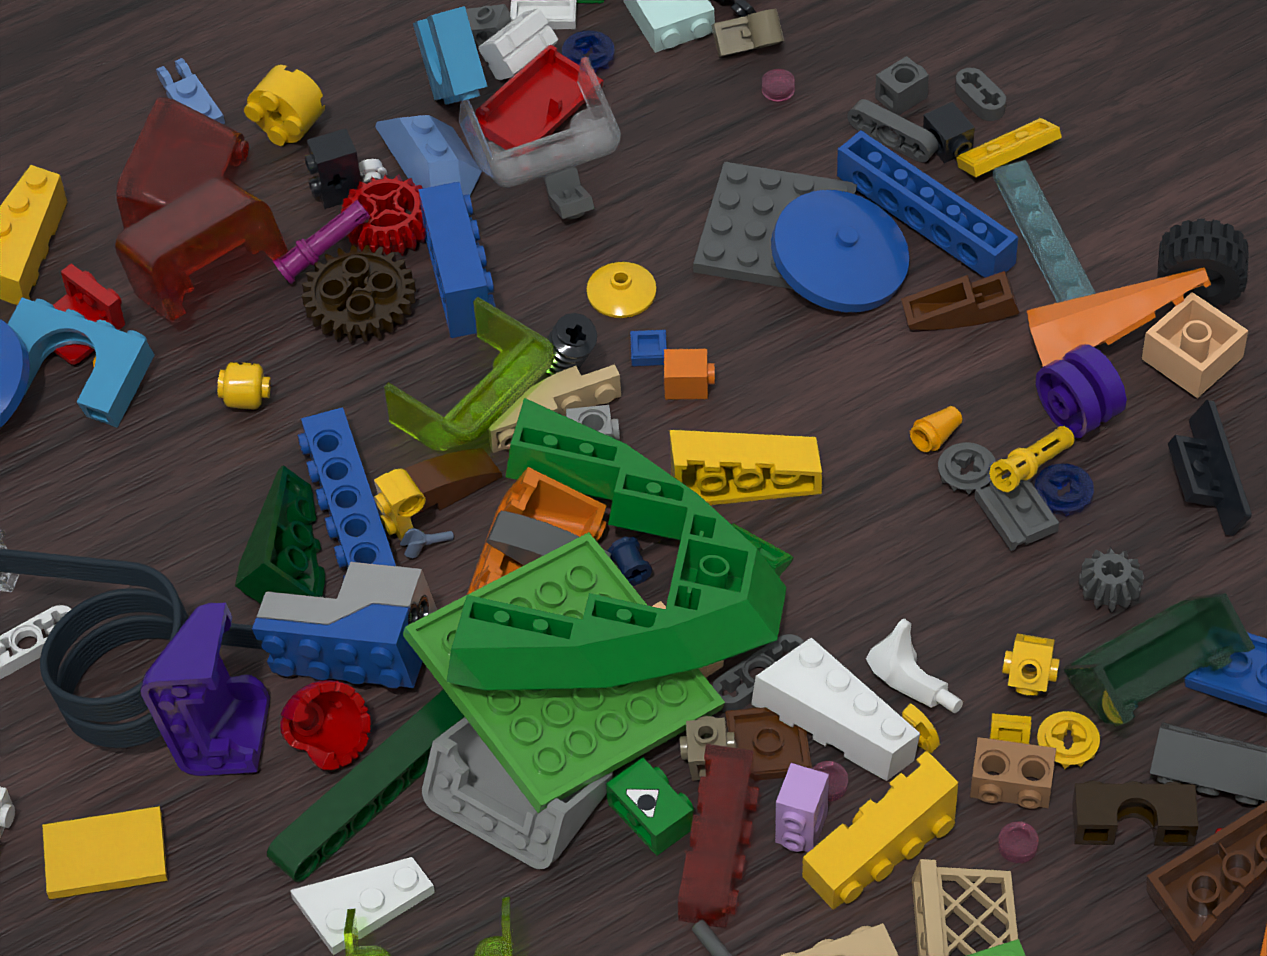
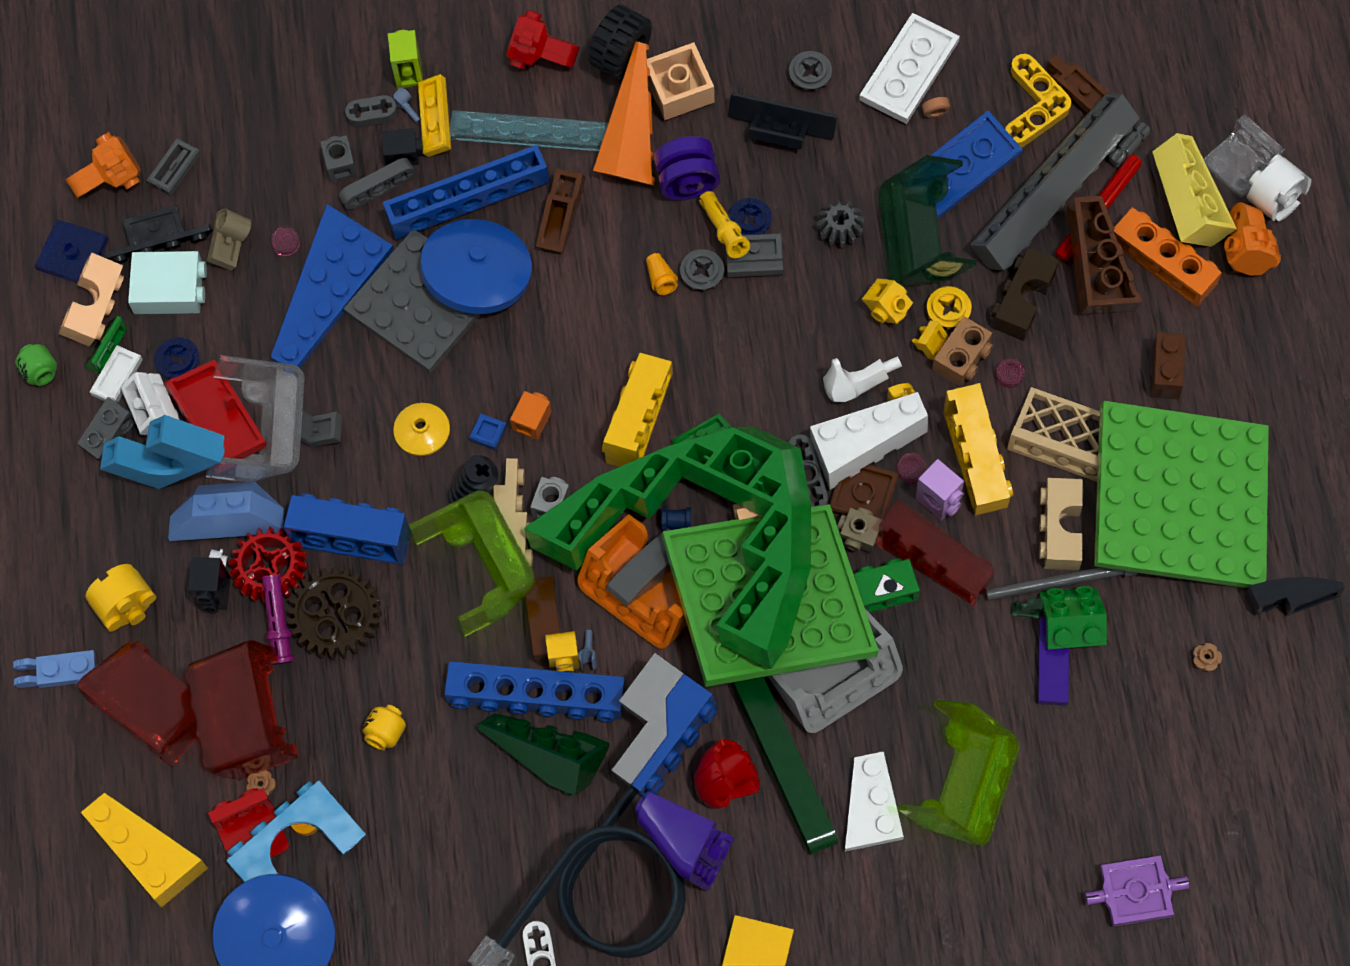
camera: 65 degrees left, 15 degrees up
(136, 311) = (264, 776): none -> medium nougat plate
(776, 138) = (335, 270): none -> blue wing
(1011, 112) = (401, 98): none -> sand blue hand
(1055, 86) = (405, 58): none -> lime brick
(1154, 190) = (532, 41): none -> red piece

